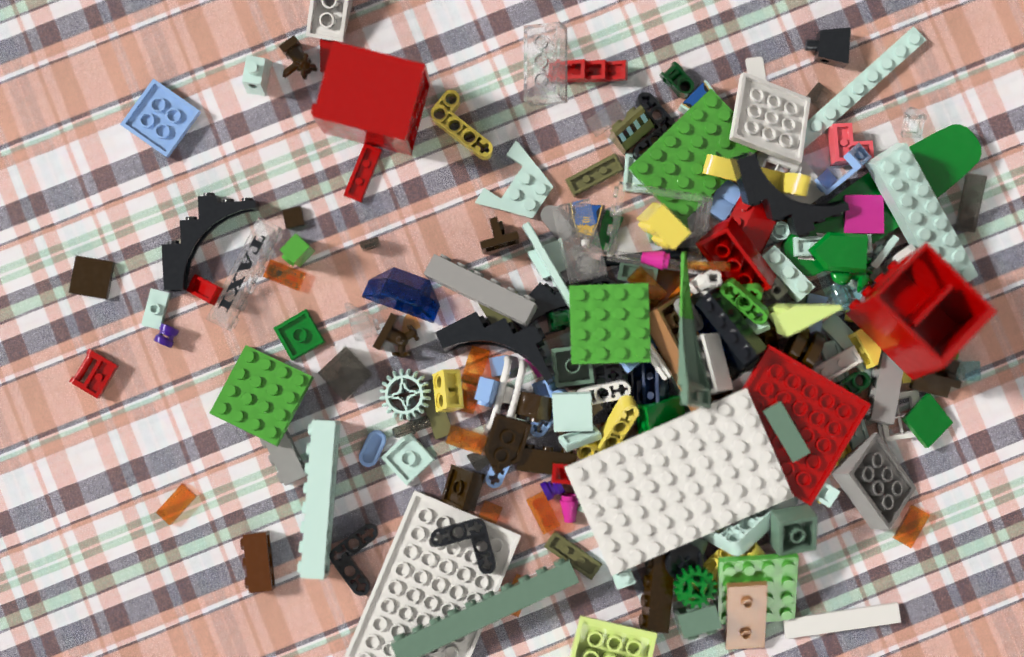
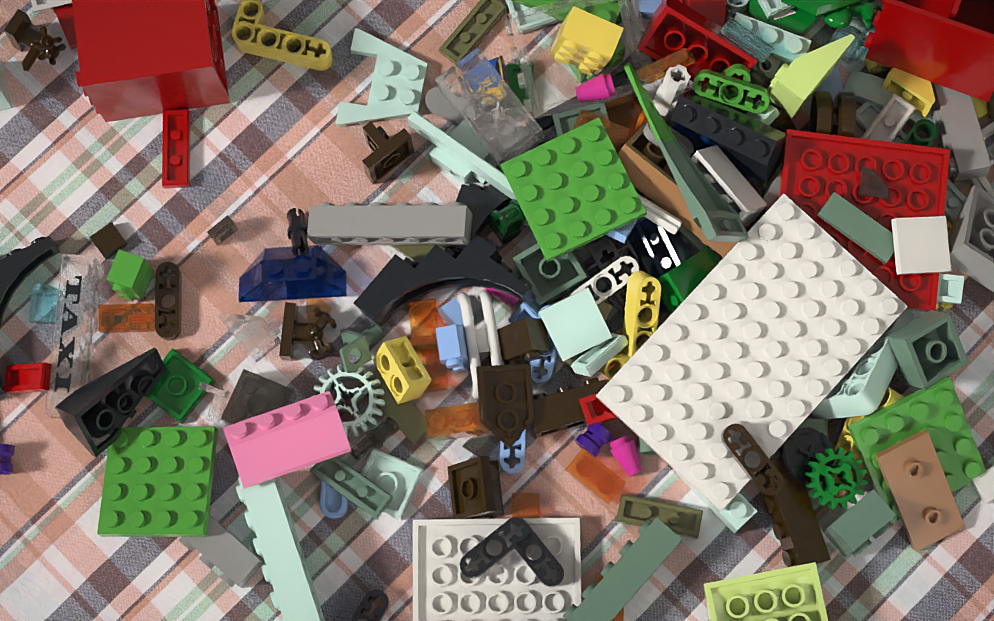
camera: 20 degrees left, 10 degrees down
(234, 243) = (43, 304): none -> clear light blue tile
(244, 331) = (103, 405): none -> black wedge
(306, 286) = (161, 320): none -> dark brown beam
(324, 355) = (218, 404): none -> clear tile
(353, 409) = (287, 439): none -> bright pink slope
(384, 450) = (353, 485): none -> sand green tile
(418, 267) = (297, 232): none -> black pin
(427, 360) = (358, 346): none -> sand green bracket
(644, 569) = (760, 480): none -> dark brown beam
(771, 269) = (747, 40): none -> clear light blue tile
(808, 406) = (872, 185): none -> clear smoke tile
(821, 461) = (921, 245): none -> white tile

